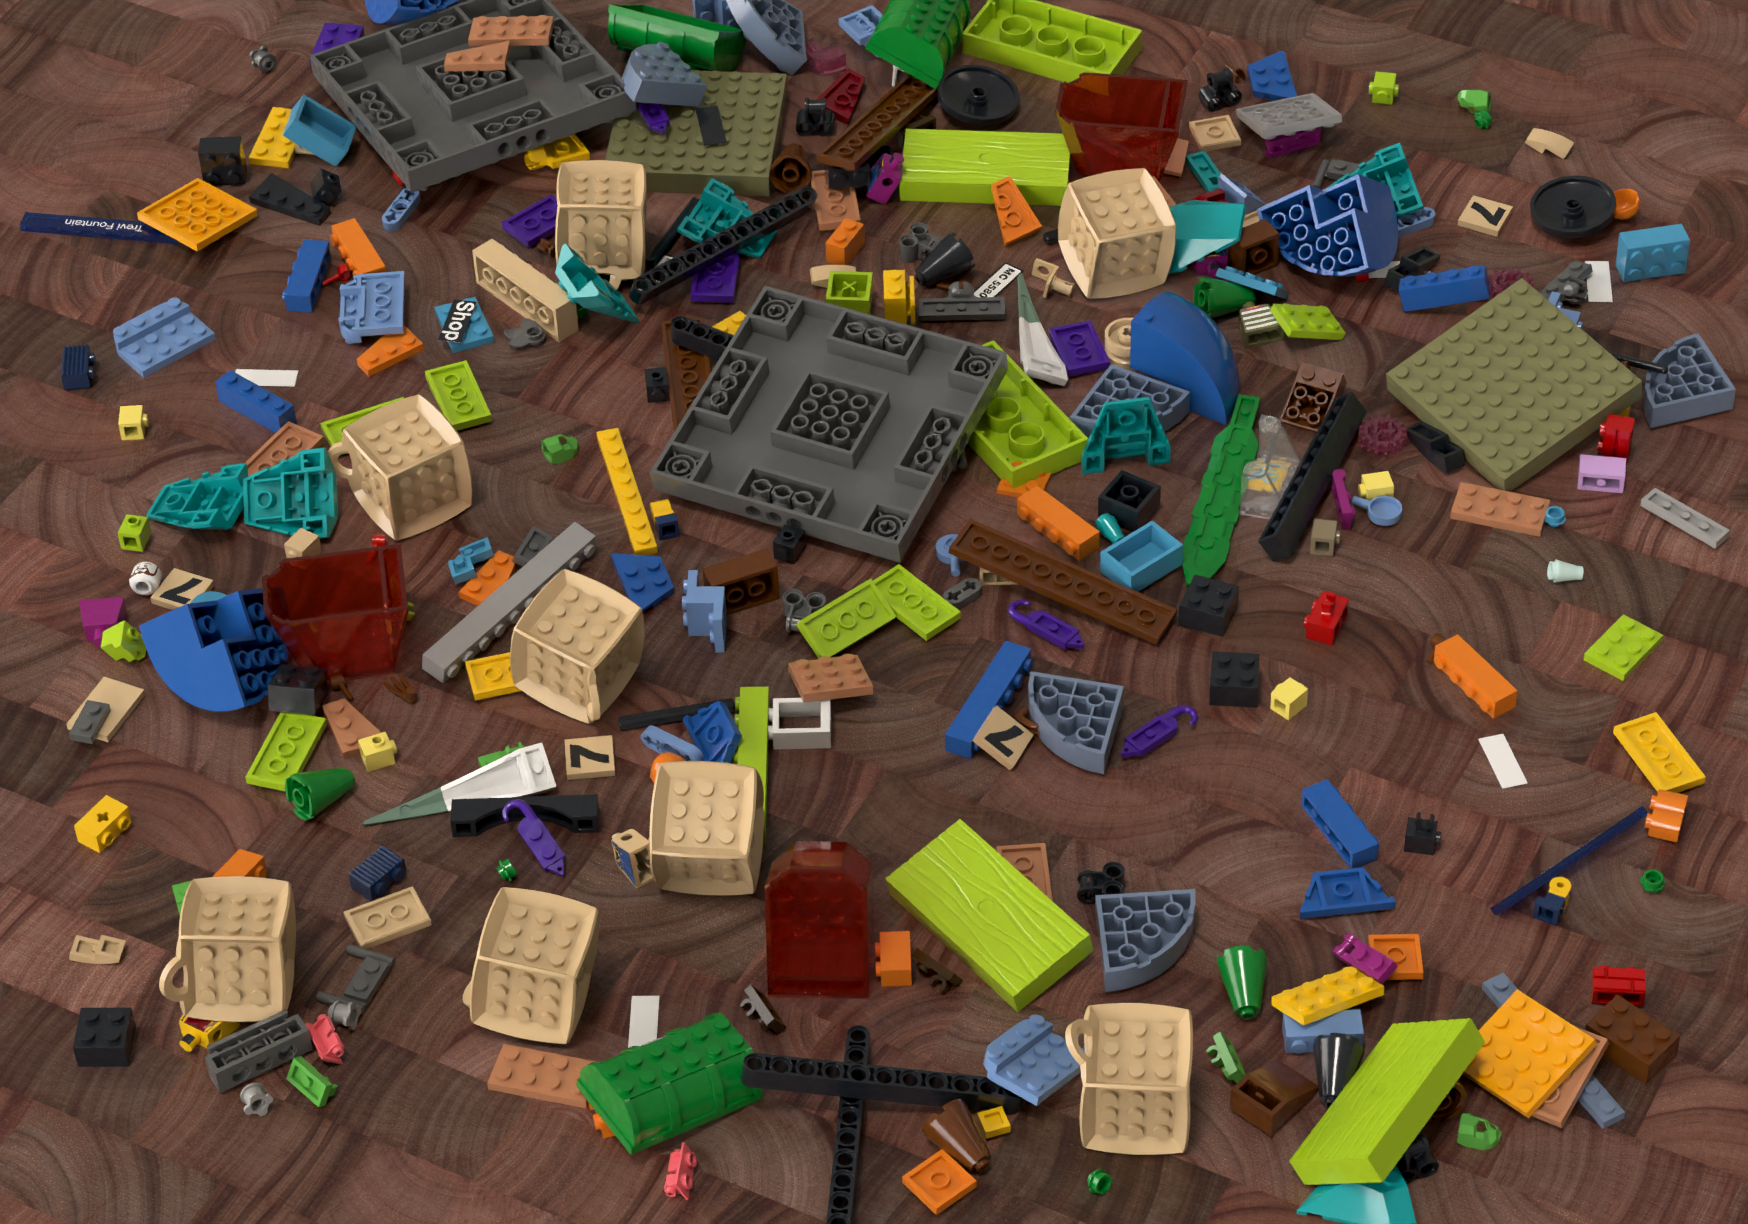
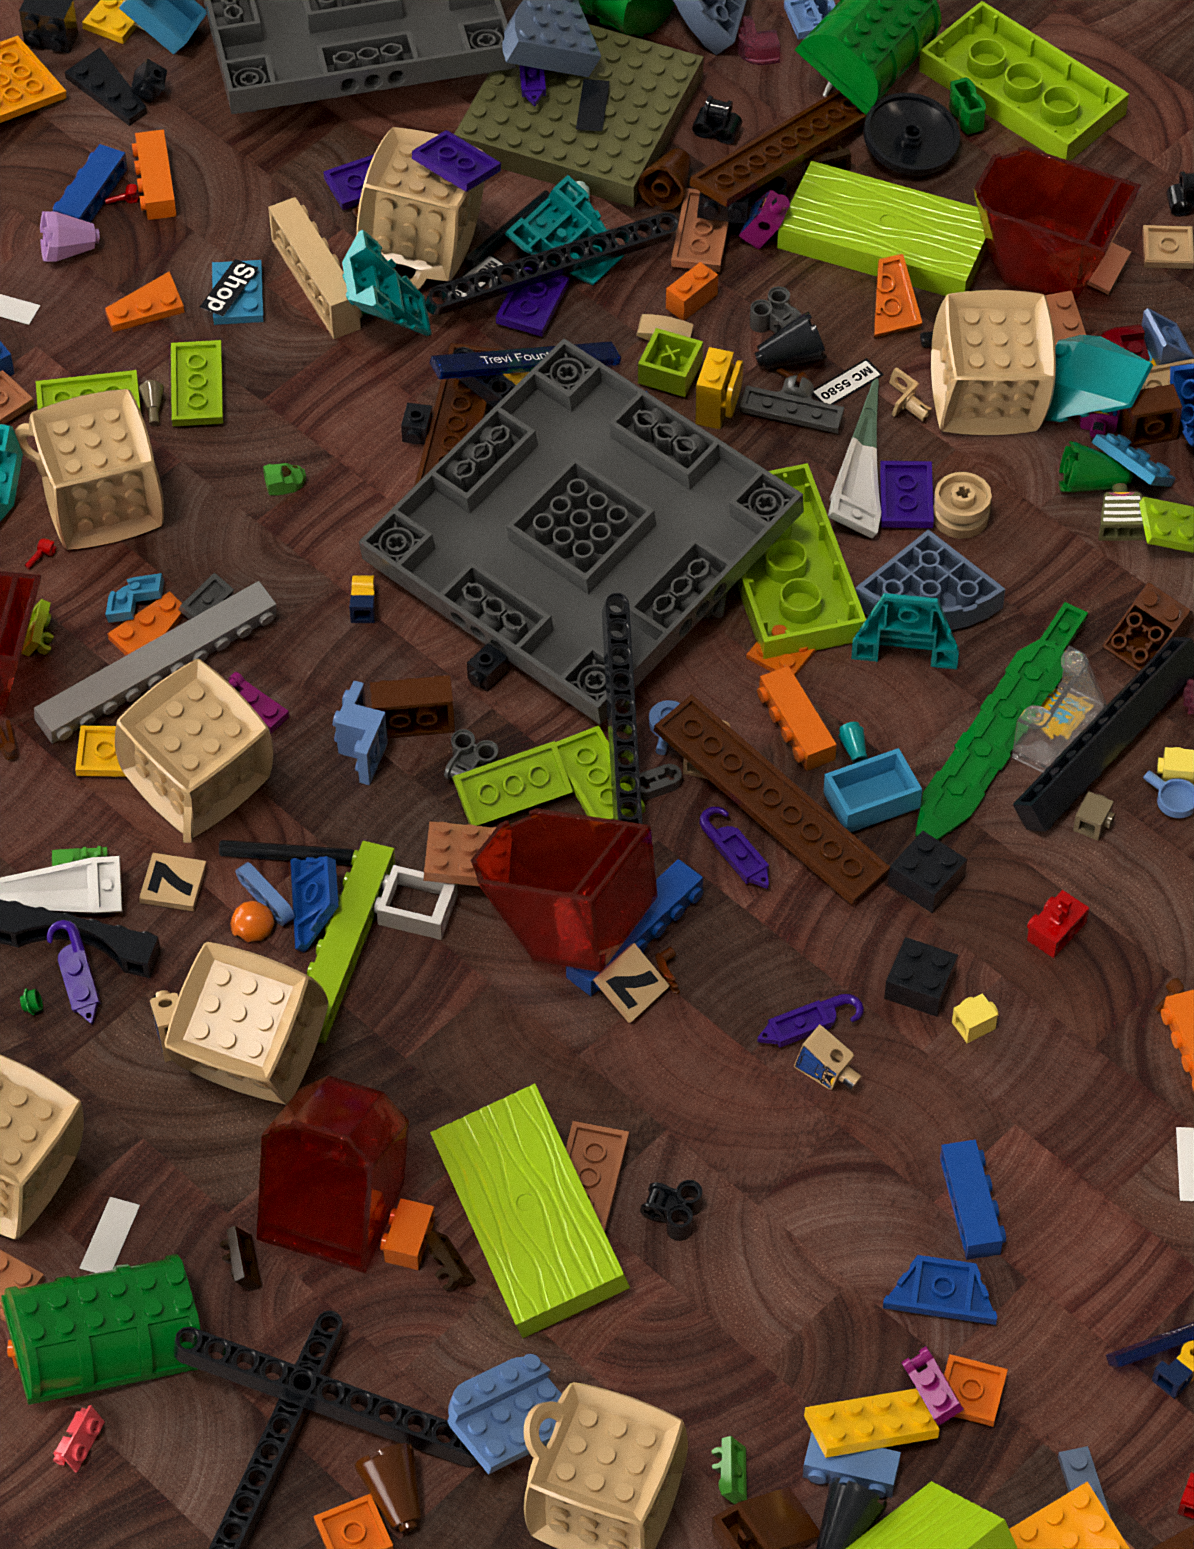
camera: 15 degrees right, 10 degrees up
(301, 312) = (65, 236): none -> lavender cone
(372, 305) = (144, 245): medium blue plate -> none
(388, 221) = (219, 136): medium blue beam -> none
(528, 334) = (299, 322): dark grey plate -> none
(555, 153) = (417, 98): yellow plate -> none
(626, 492) = (336, 553): yellow plate -> none
(627, 173) = (456, 160): none -> dark purple plate
(643, 578) = (313, 671): blue wing -> none
(705, 321) = (510, 360): none -> clear blue tile
(843, 95) = (760, 97): dark red wing -> none
(900, 490) = (621, 697): none -> black beam
(932, 668) = (569, 884): none -> clear red windscreen
(993, 1122) = (441, 1474): yellow plate -> none
(1015, 65) = (967, 105): none -> green brick
(1076, 717) = (722, 980): sand blue brick -> none
(1130, 500) = (887, 711): black brick -> none
(1142, 934) = (692, 1282): sand blue brick -> none
(1184, 753) = (826, 1060): none -> tan torso
(1187, 350) = (1021, 536): blue brick -> none
(1204, 170) = (1136, 294): teal plate -> none
(1244, 979) = (784, 1375): green cone -> none
(1342, 499) = (1134, 770): magenta plate -> none
(1422, 835) = (1059, 1240): black brick -> none

